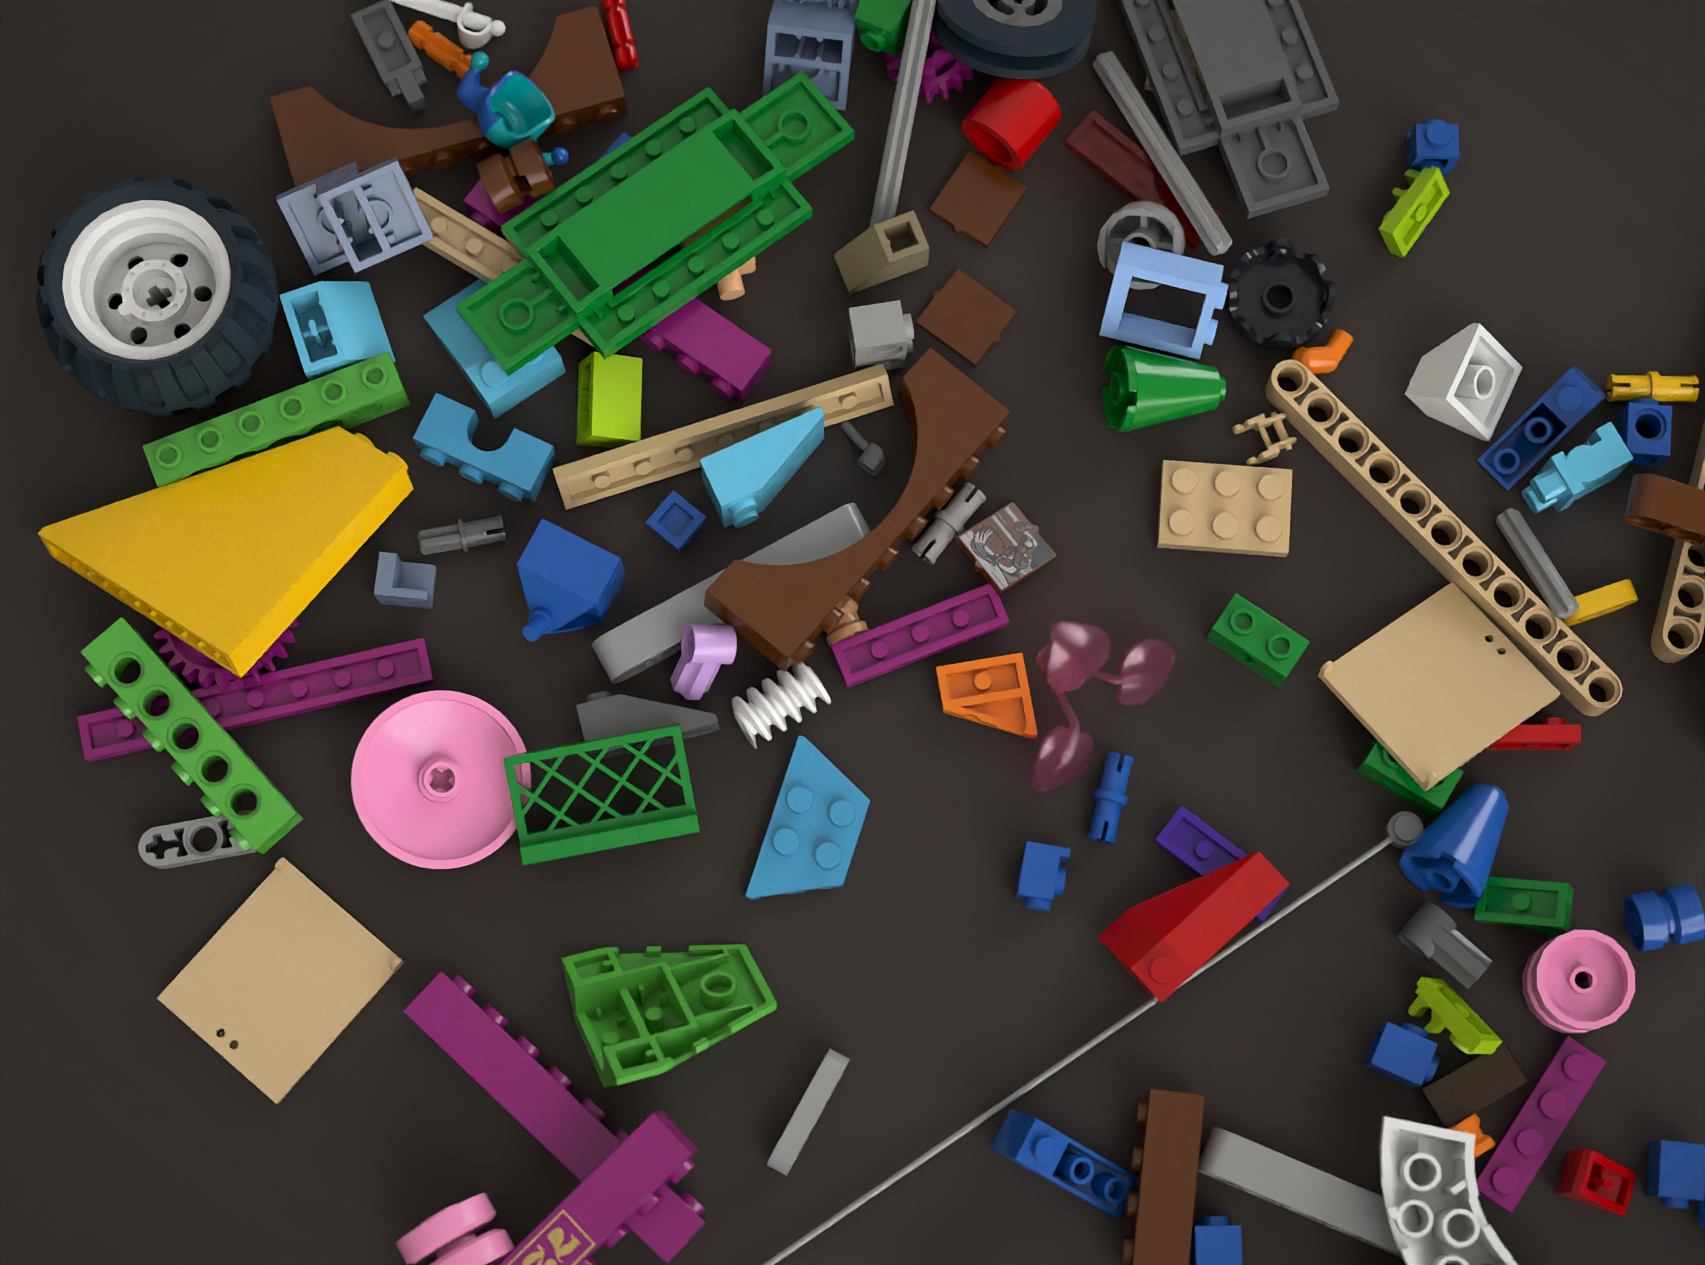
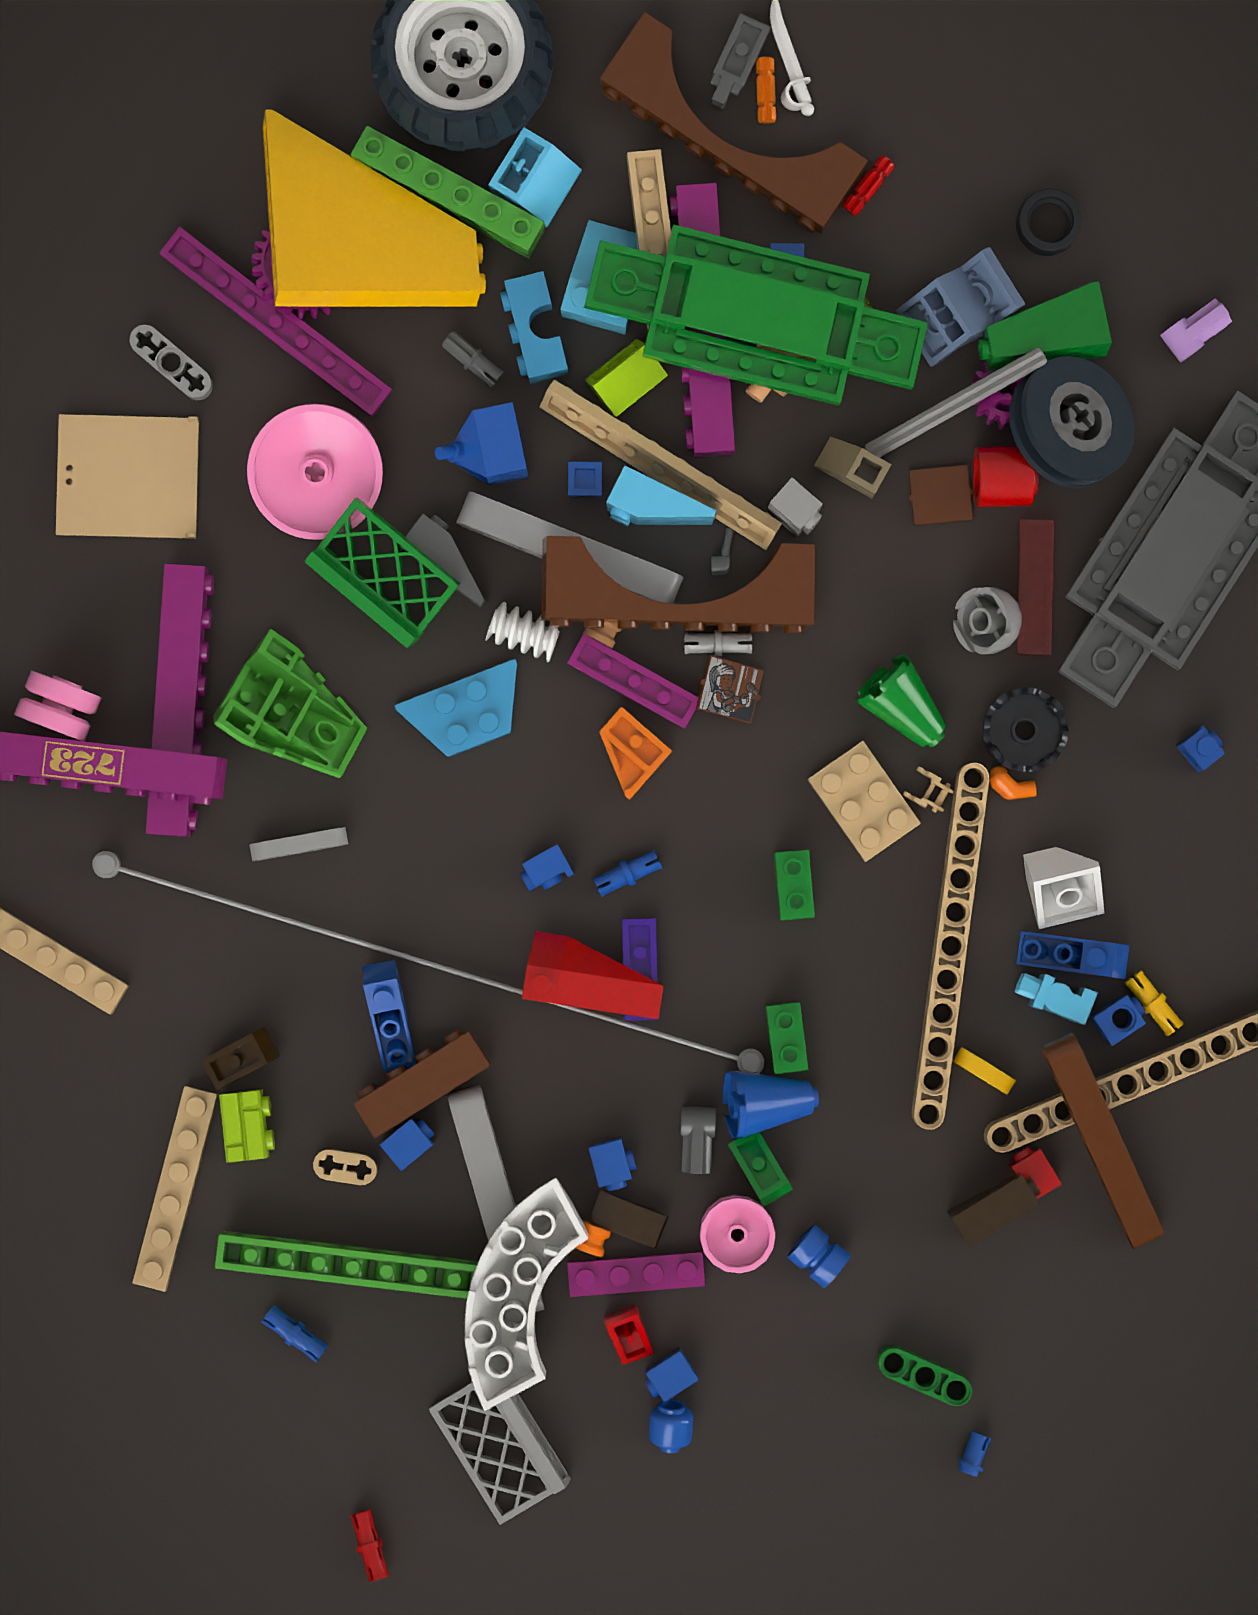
camera: 55 degrees right, 10 degrees up
(124, 646) = (219, 219): bright green brick -> none
(355, 216) = (609, 130): sand blue bracket -> none
(404, 582) = (417, 349): sand blue panel -> none
(508, 109) = (751, 169): teal piece -> none
(516, 175) = (715, 208): reddish brown wheel -> none
(703, 652) = (512, 563): lavender piece -> none
(966, 317) = (858, 549): reddish brown piece -> none
(1069, 659) = (681, 785): clear pink plant -> none
(1162, 153) = (1058, 585): light grey axle -> none
(1169, 270) = (978, 653): light blue window -> none
(1413, 209) = (1150, 769): lime plate -> none
(1437, 686) = (852, 1014): tan door -> none
(1451, 1011) = (657, 1175): lime plate -> none
(1537, 563) = (979, 1016): light grey axle -> none
(1548, 735) = (861, 1081): red plate -> none

